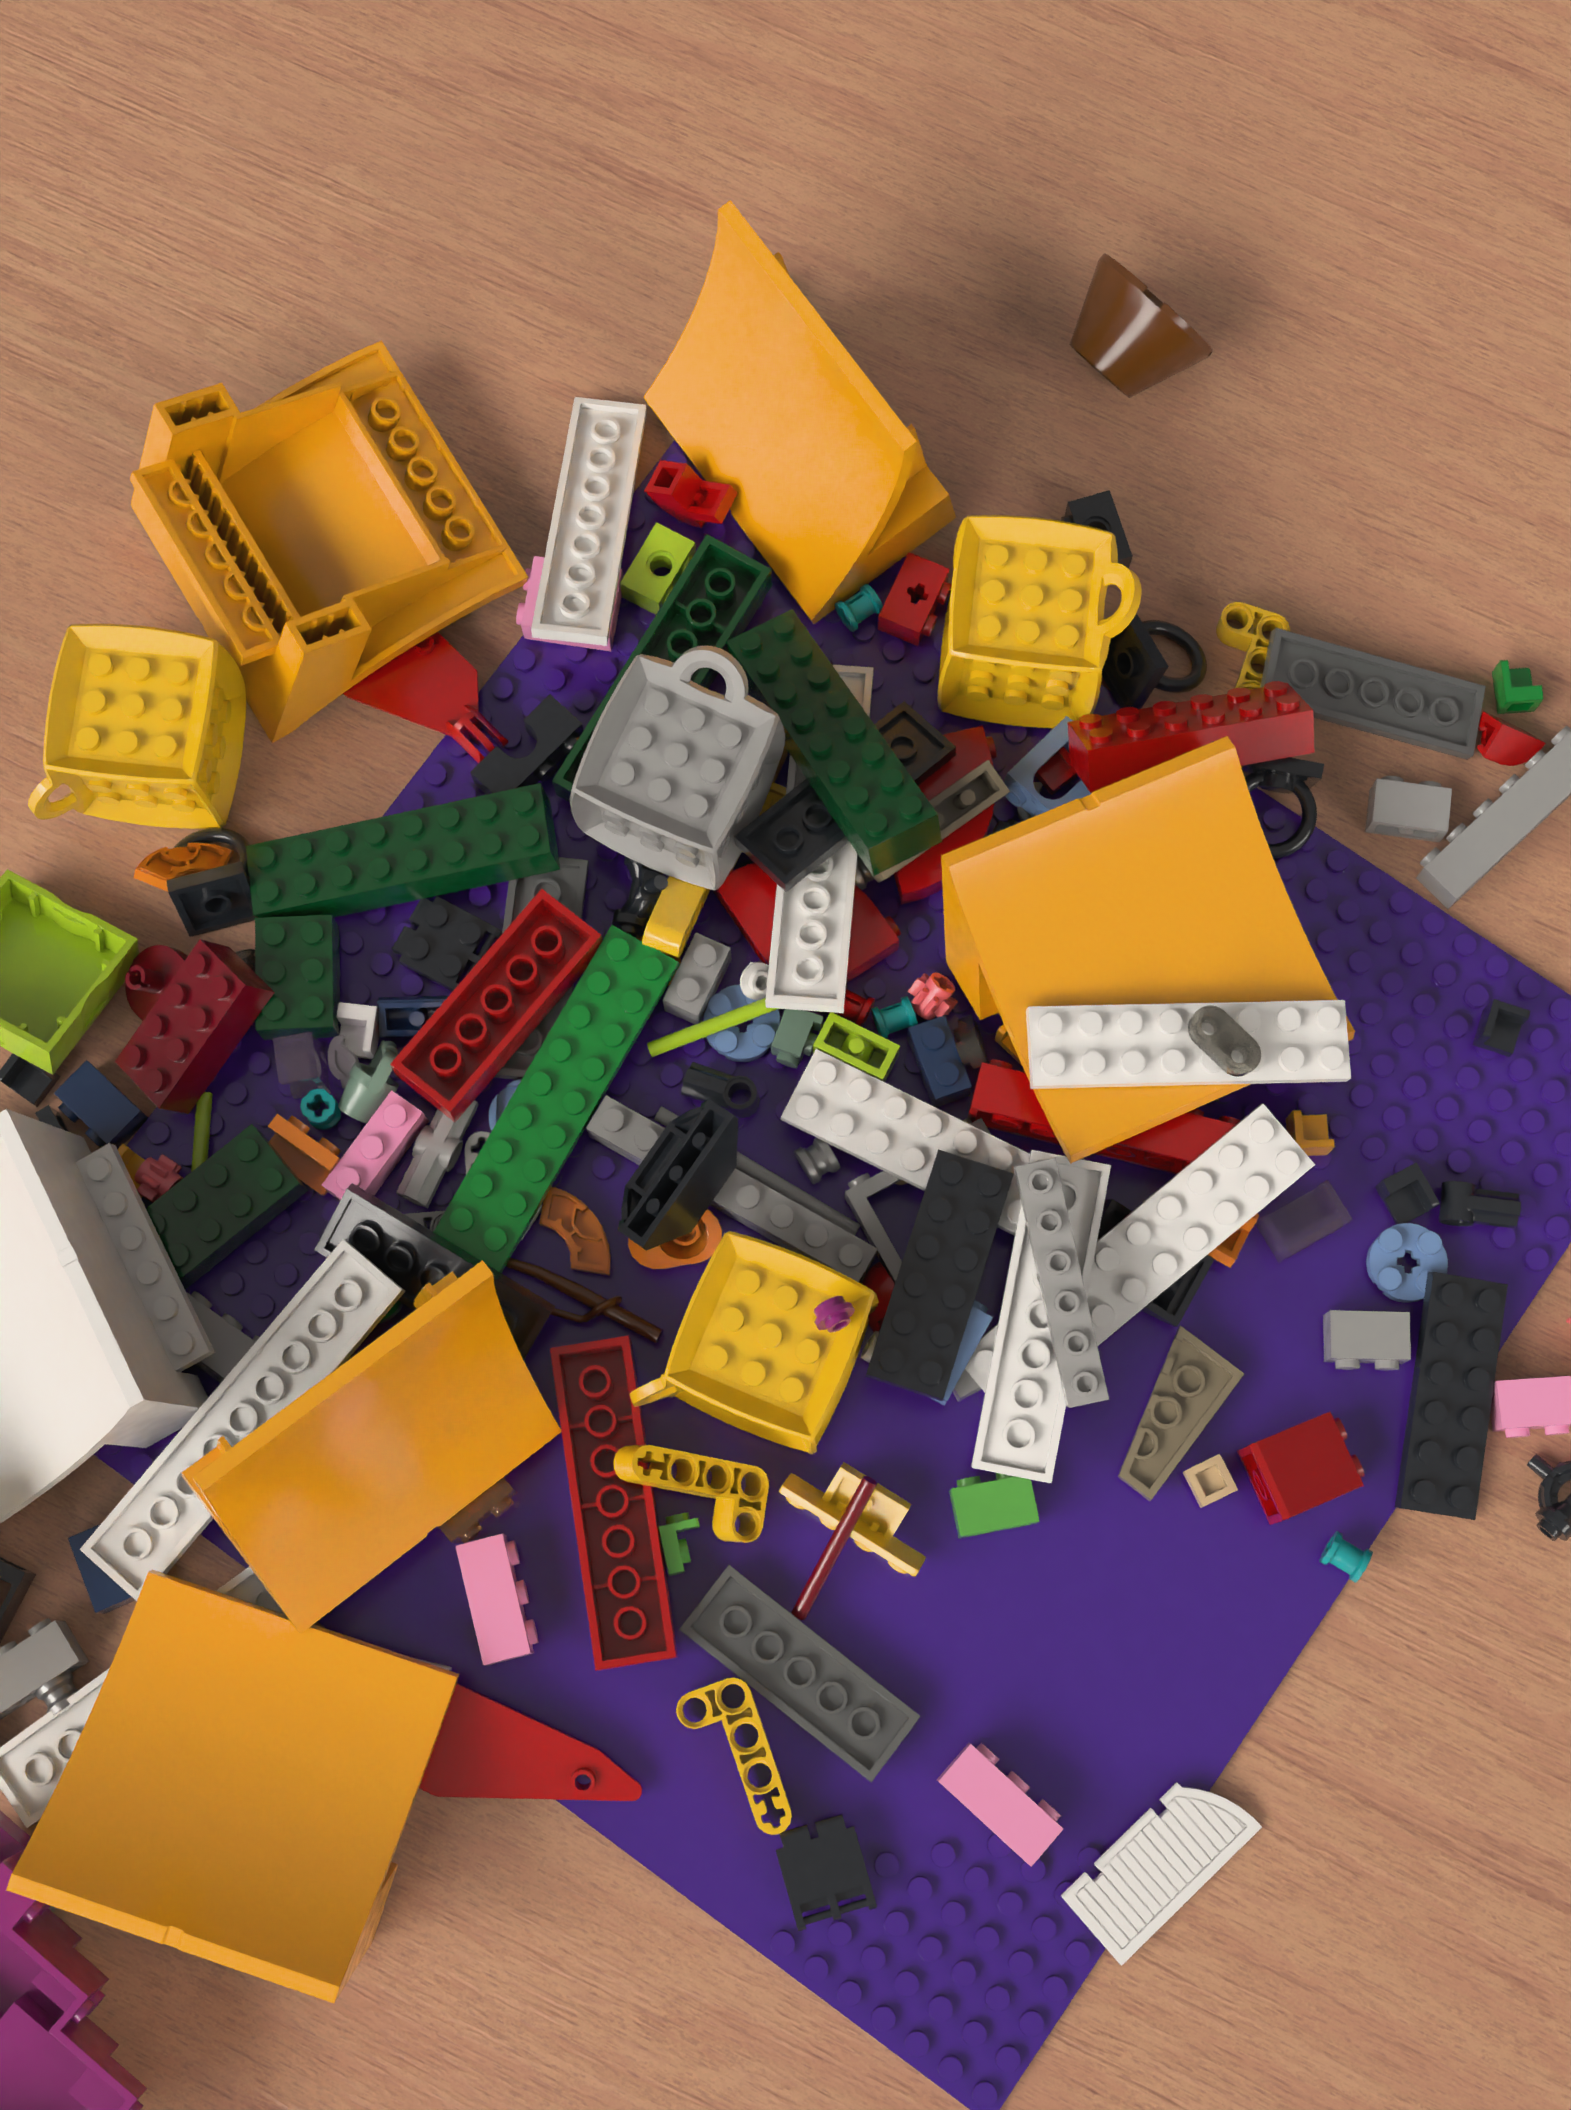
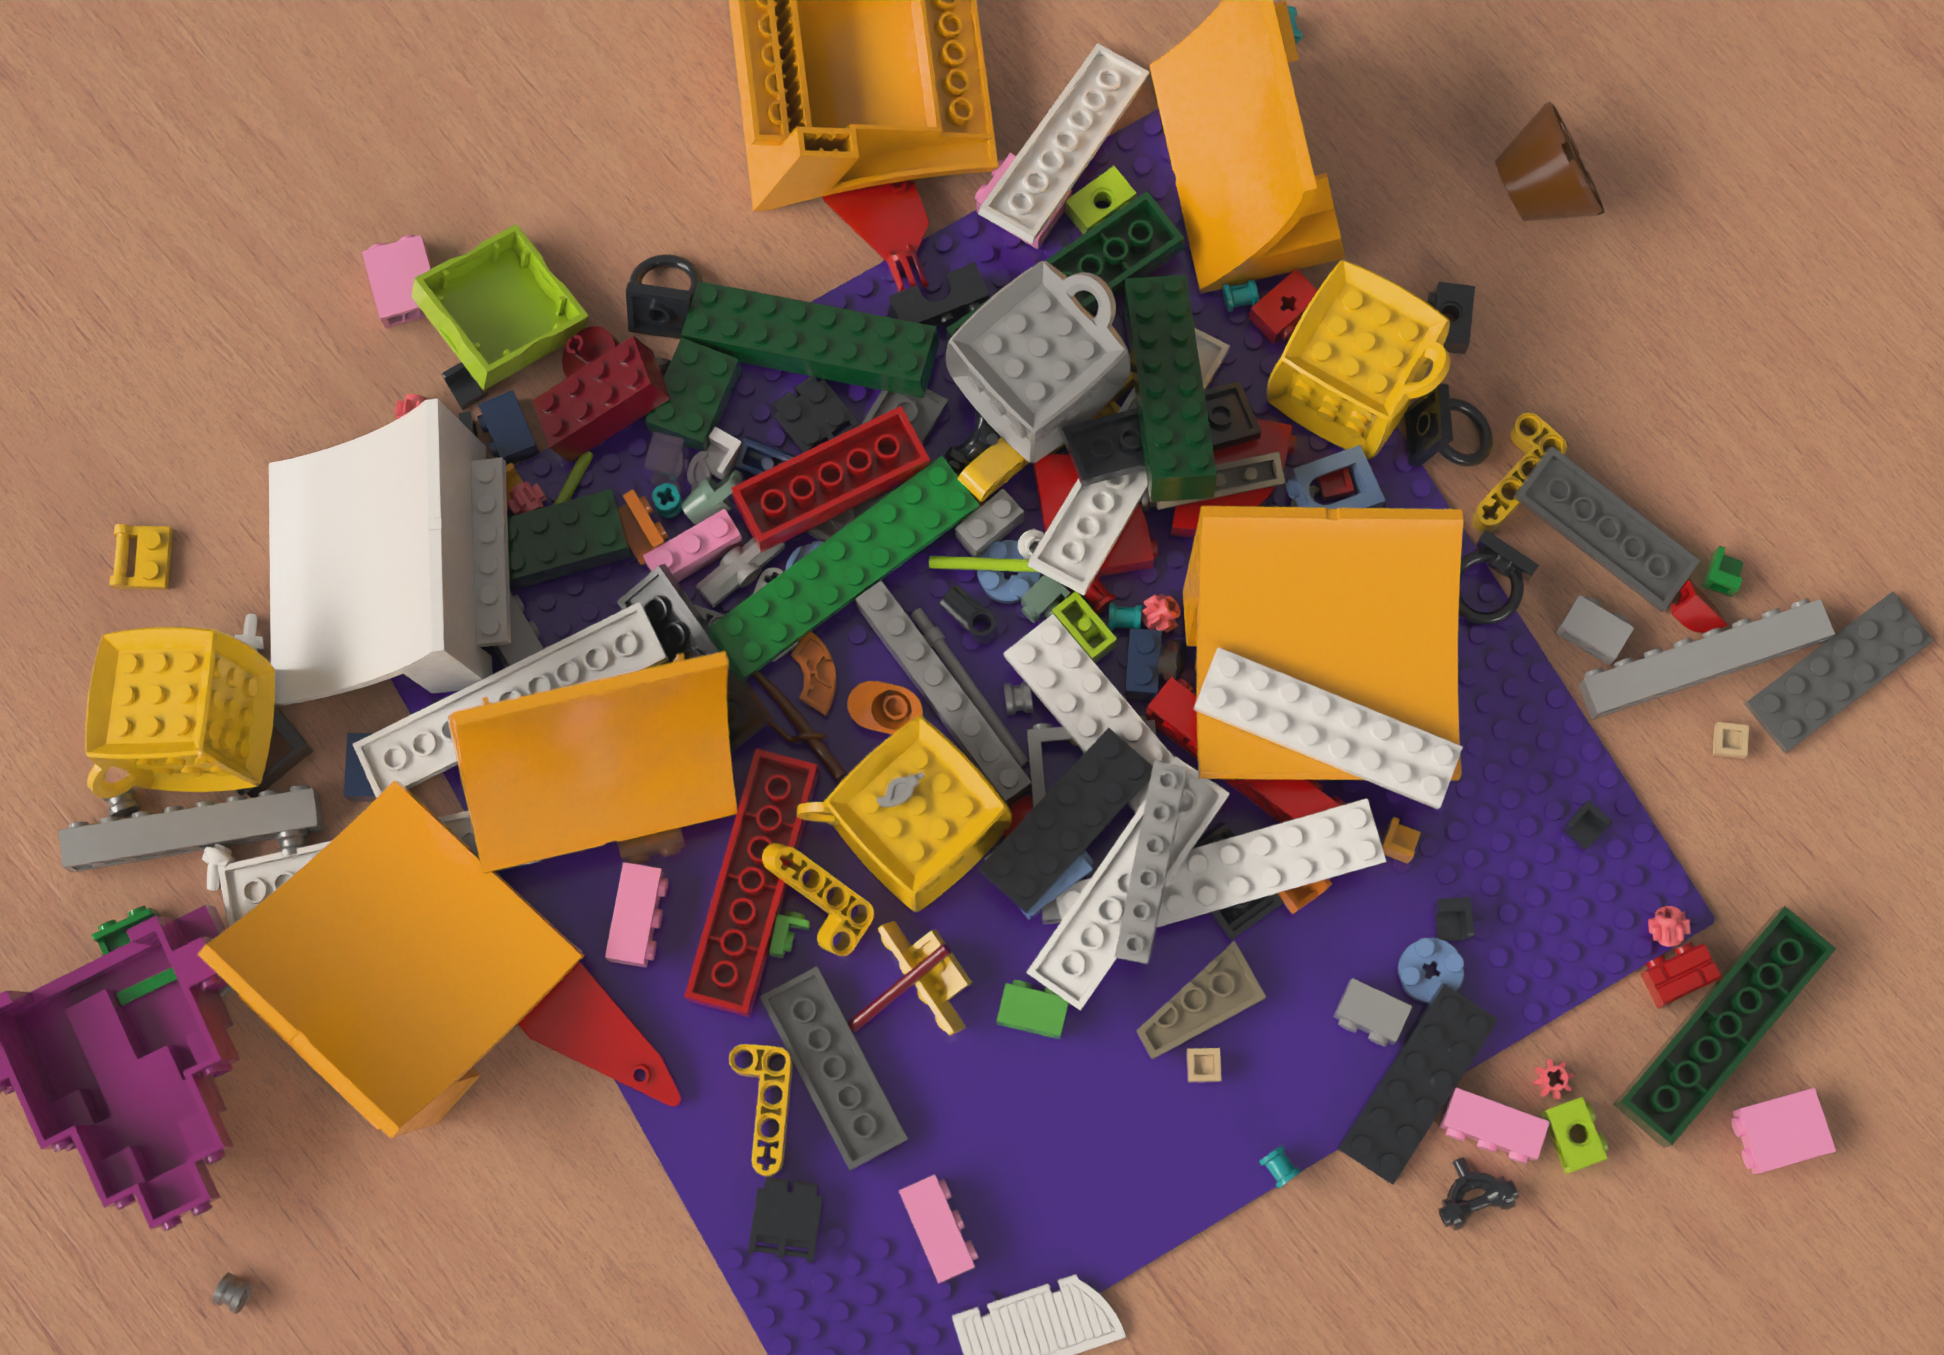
camera: 25 degrees right, 0 degrees up
(143, 727) = (661, 161): yellow piece -> none
(180, 861) = (645, 272): orange tile -> none
(680, 1176) = (907, 663): black wedge -> none
(687, 497) = (1147, 154): red brick -> none
(744, 1326) = (900, 790): none -> light grey piece
(833, 1314) = (969, 809): magenta plate -> none
(1227, 1037) = (1354, 736): clear smoke plate -> none
(1259, 722) = (1490, 507): red brick -> none
(1301, 1467) = (1277, 1085): red slope -> none
(1303, 1221) = (1364, 905): clear purple panel -> none
(1466, 1205) = (1496, 947): black piece -> none

